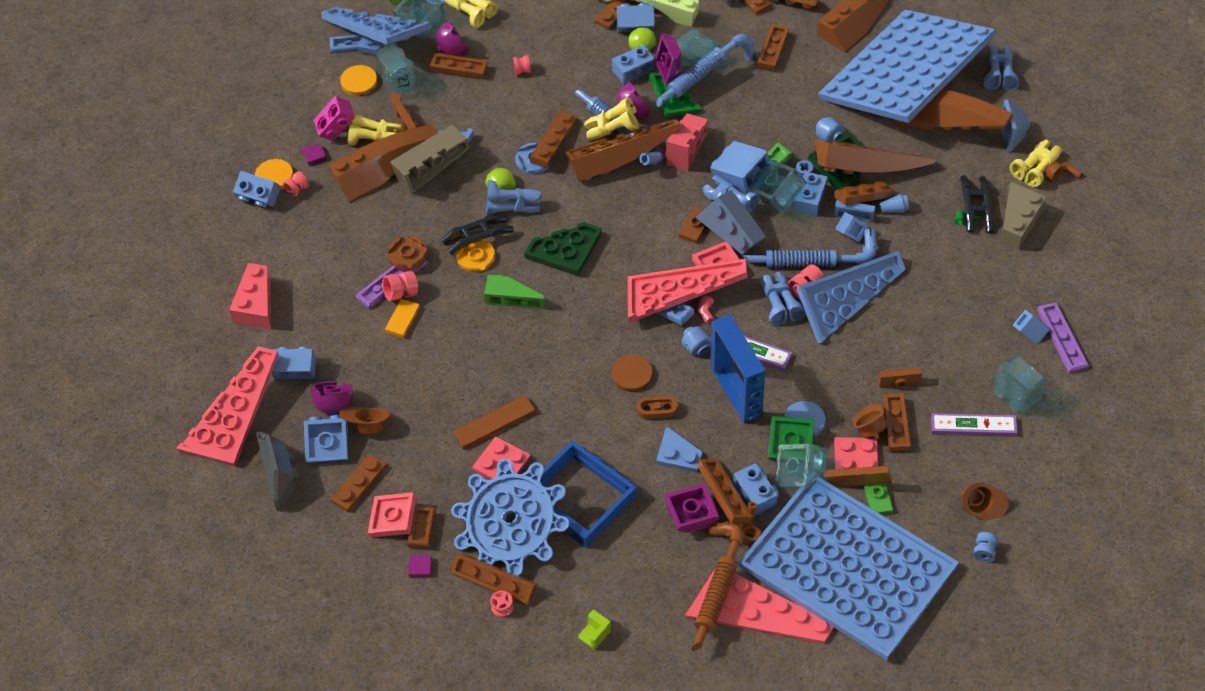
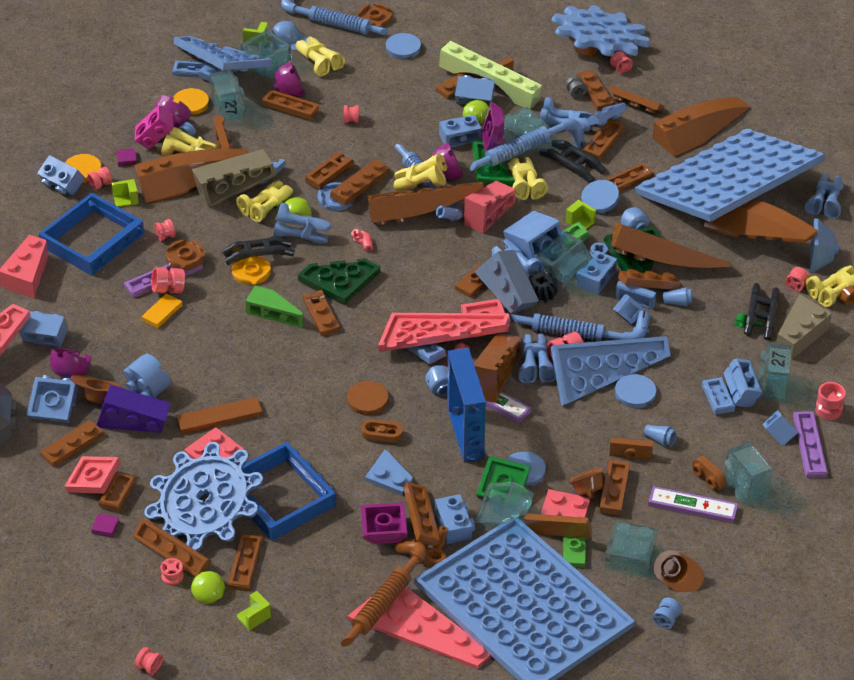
camera: 10 degrees right, 10 degrees down
(326, 196) = (125, 193): none -> lime panel
(347, 232) = (132, 231): none -> blue window
(354, 95) = (180, 111): none -> magenta cylinder
(366, 112) = (188, 129): none -> medium blue bush
(378, 229) = (164, 230): none -> coral wheel
(409, 437) = (132, 411): none -> dark purple wedge
(413, 398) = (146, 376): none -> medium blue brick
(470, 169) = (272, 195): none -> light yellow piece
(518, 131) = (328, 170): none -> dark orange plate
(541, 613) = (208, 587): none -> lime hair
(558, 290) = (321, 313): none -> dark orange plate
(568, 577) = (245, 562): none -> dark orange tile
(574, 199) = (363, 238): none -> coral arm
(710, 96) = (523, 172): none -> light yellow piece
(727, 30) = (553, 116): none -> medium blue piece
(747, 309) = (497, 363): none -> dark orange wedge
(756, 79) = (574, 165): none -> black piece
(765, 218) = (544, 286): none -> black gear
(770, 19) = (612, 112): none -> medium blue wing
(776, 133) = (581, 213): none -> lime panel
(788, 110) = (601, 195): none -> medium blue tile
(805, 86) = (631, 176): none -> dark orange tile
(883, 313) = (635, 391): none -> medium blue tile
(922, 356) = (662, 434): none -> medium blue cone
(932, 485) = (631, 548): none -> clear light blue brick
(963, 303) = (718, 396): none -> medium blue plate
(984, 286) = (742, 383): none -> medium blue brick
(987, 393) = (709, 472): none -> dark orange plate
(1000, 163) = (797, 279): none -> coral wheel
(1011, 270) = (774, 371): none -> clear light blue brick
(1070, 289) = (830, 401): none -> coral wheel

